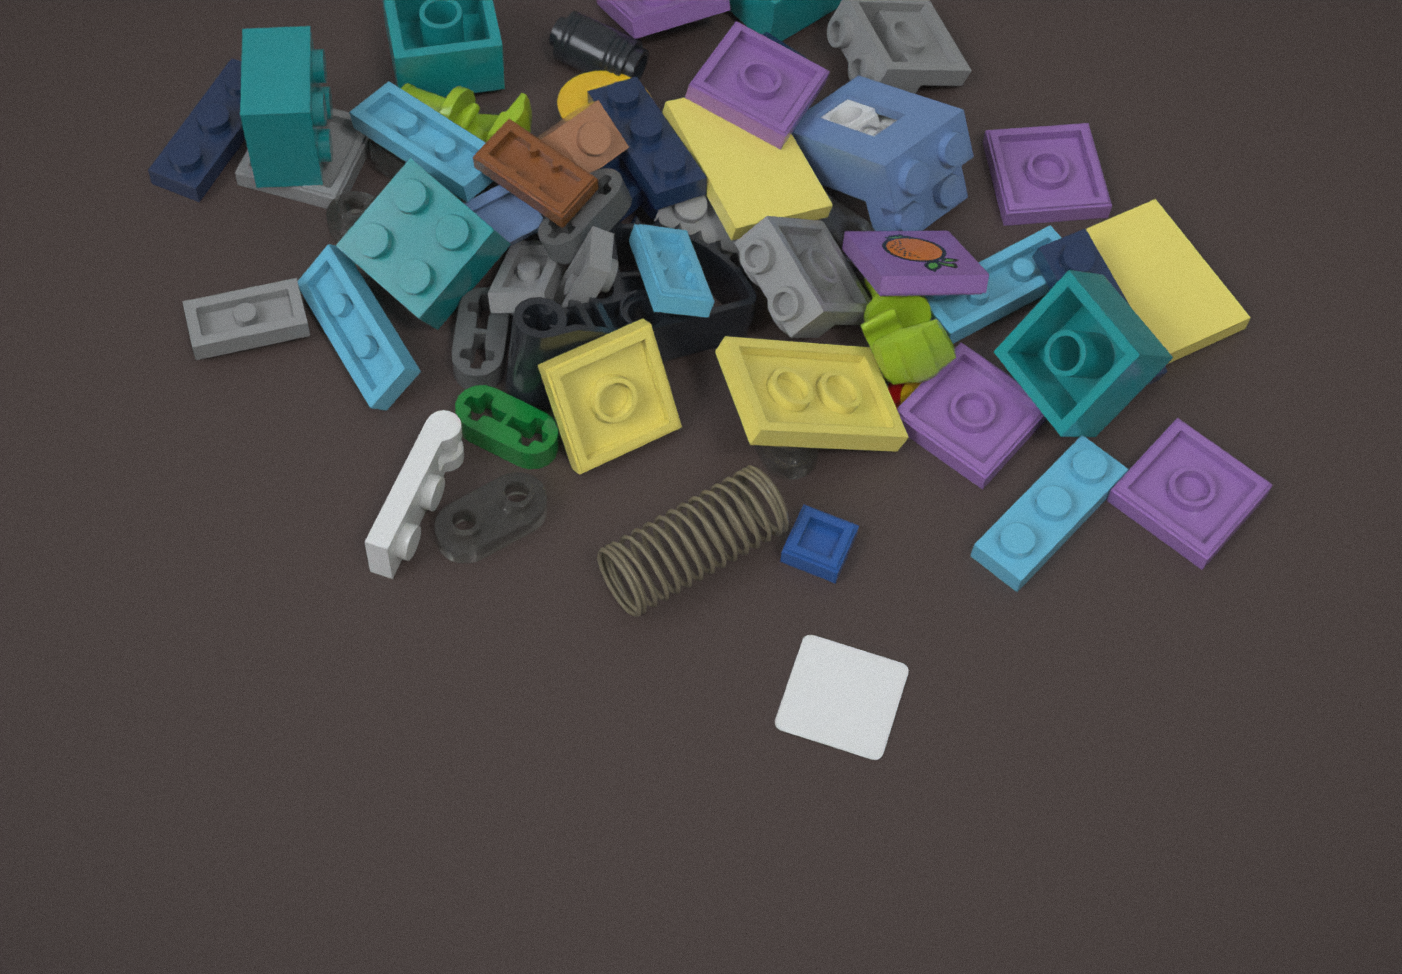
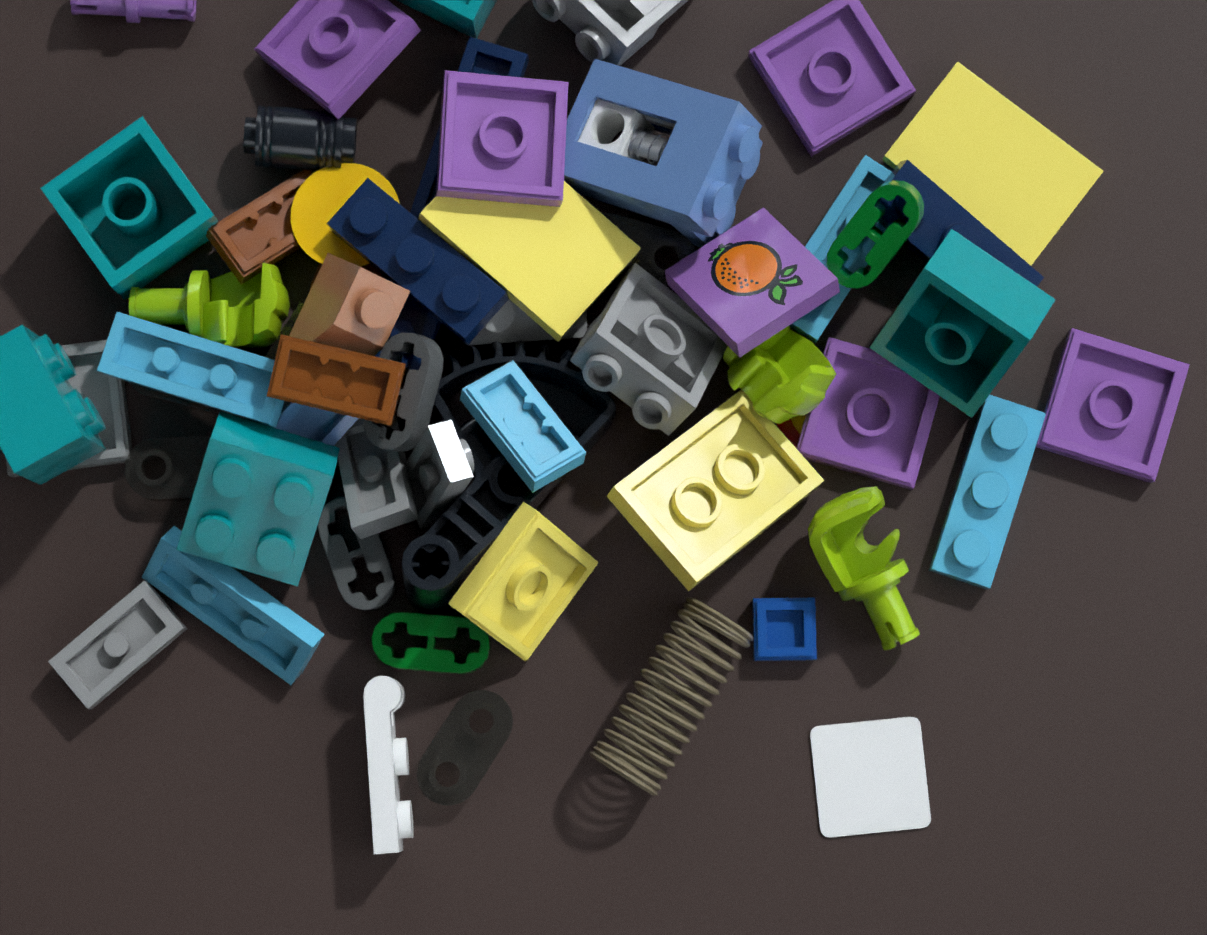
camera: 20 degrees left, 25 degrees up
(538, 84) = (258, 231): none -> dark orange plate
(903, 482) = (859, 568): none -> lime piece
(1035, 262) = (863, 226): none -> green beam

